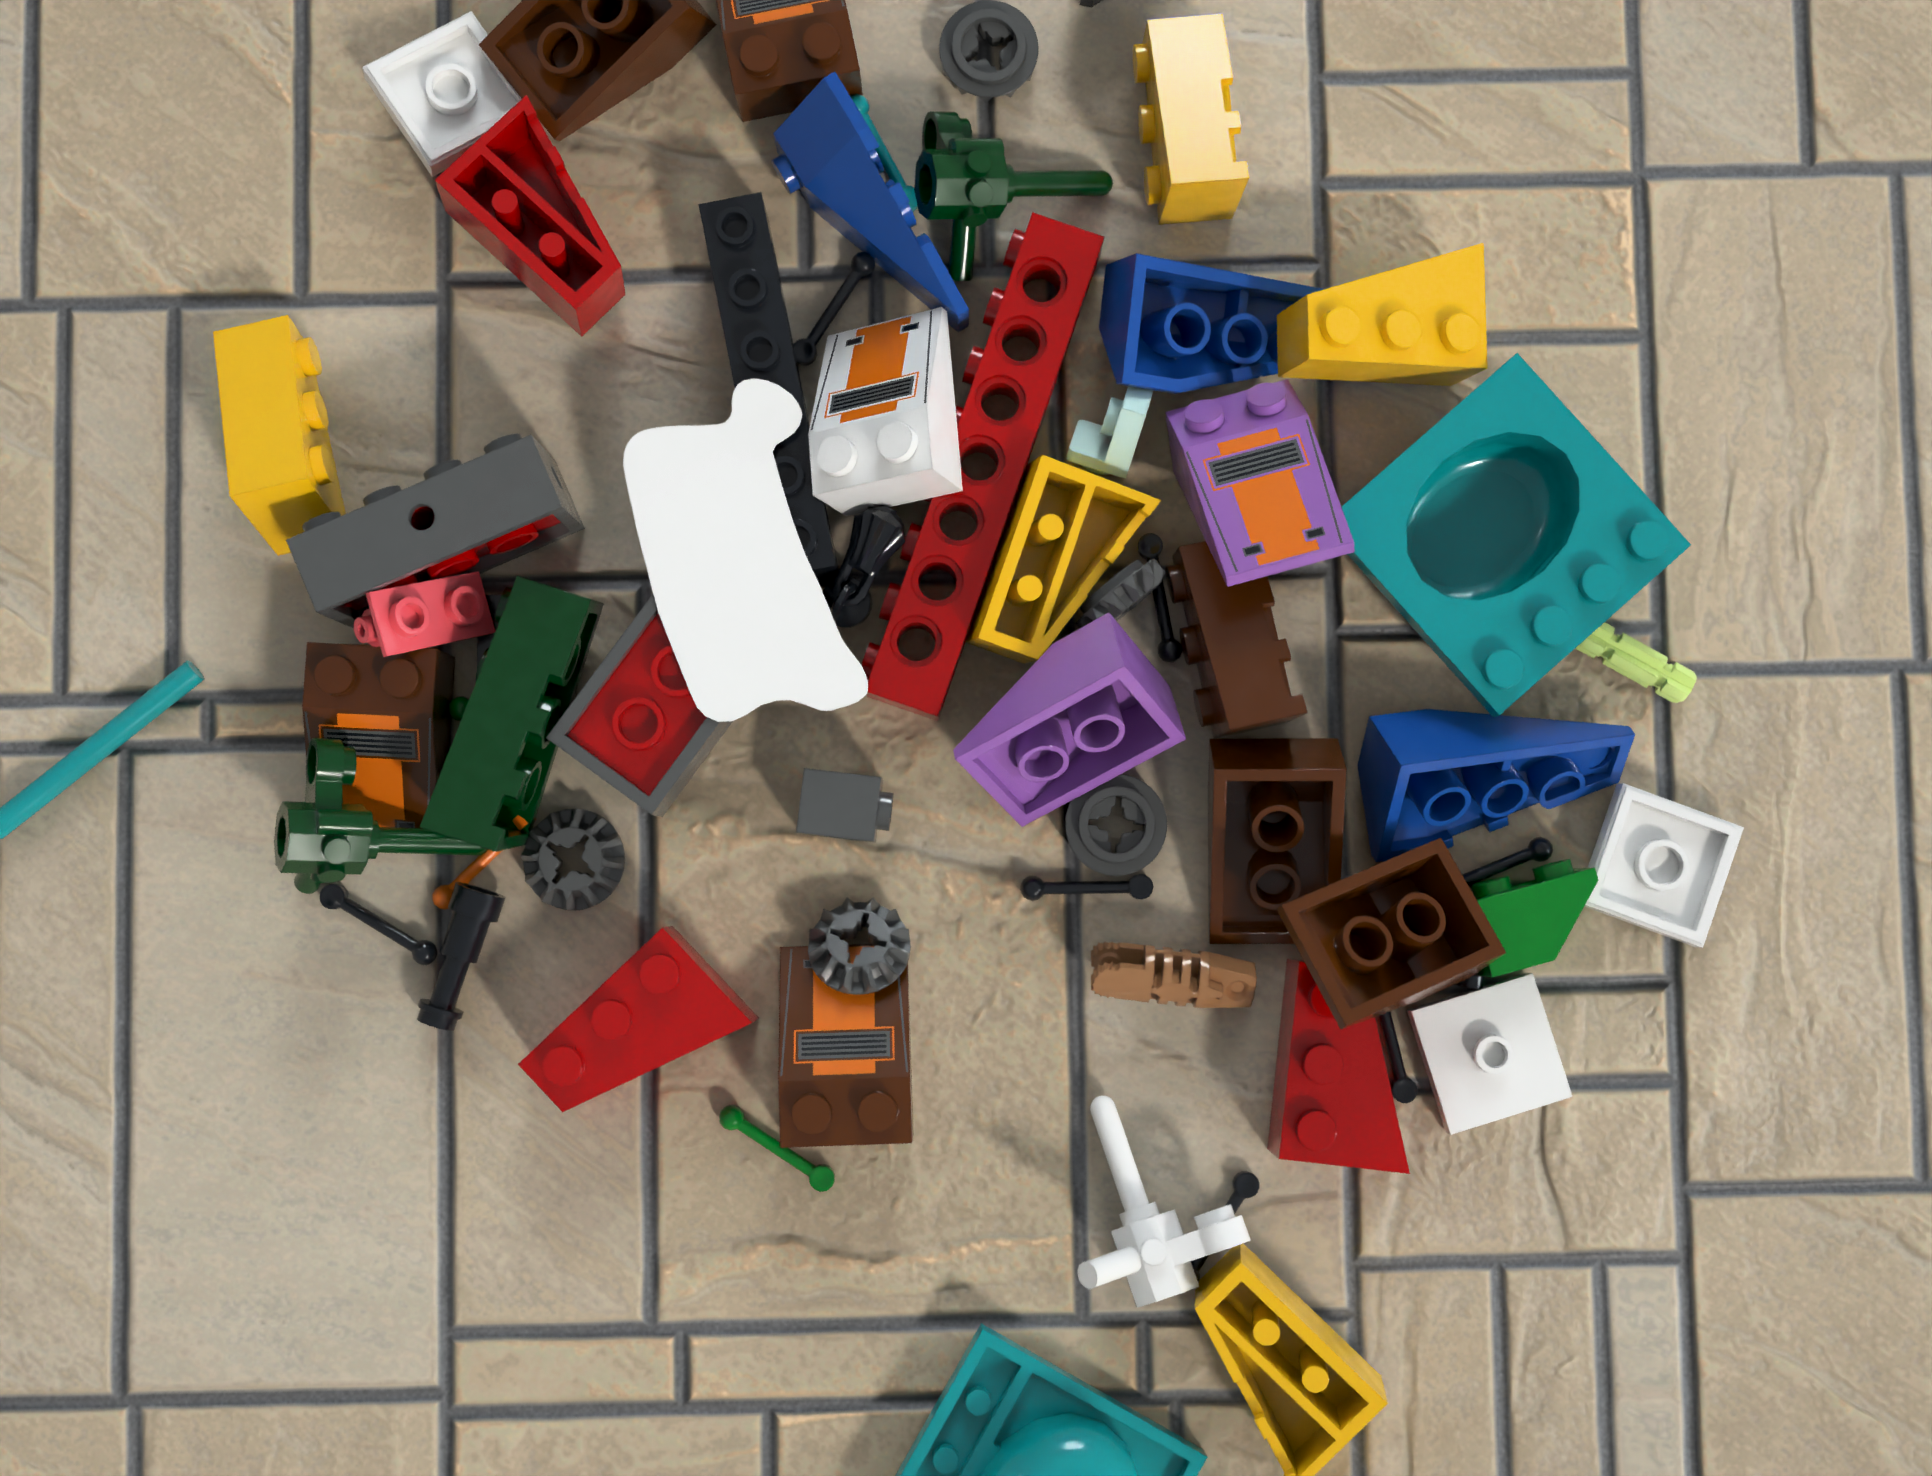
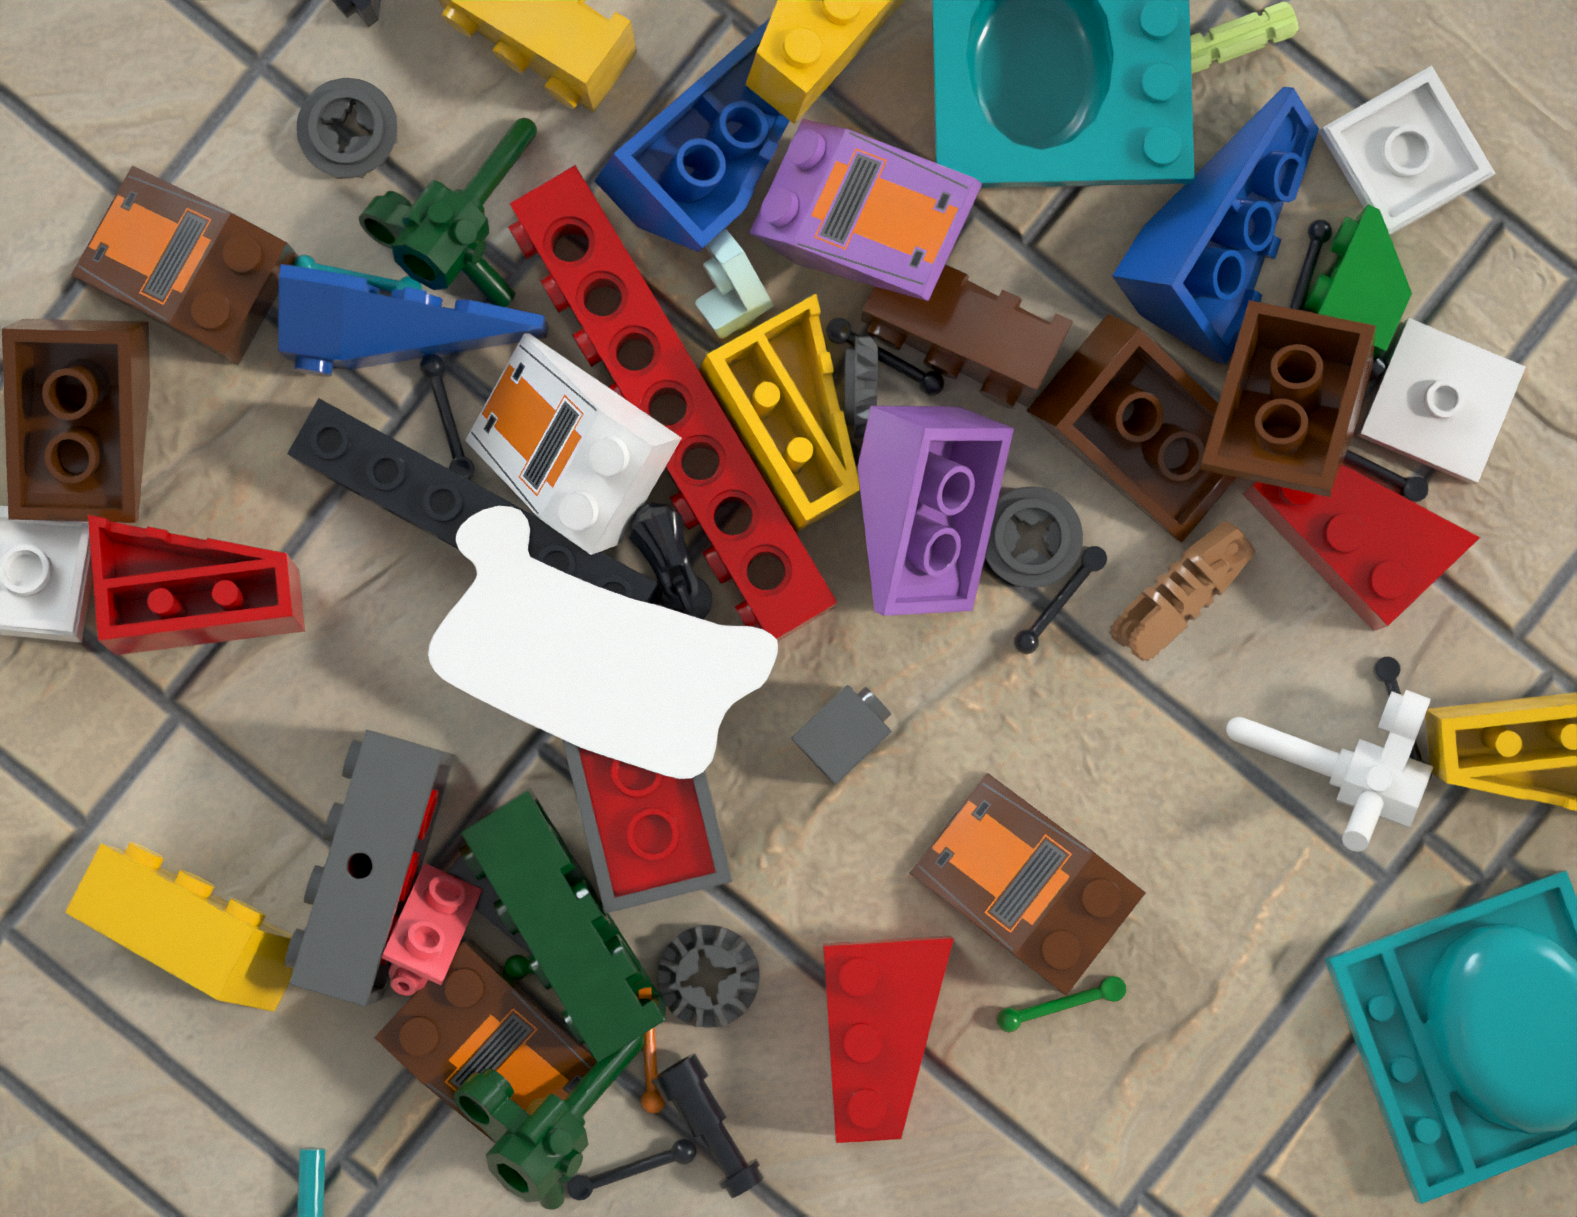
camera: 45 degrees left, 0 degrees up
(874, 966) = (987, 811): dark grey gear -> none

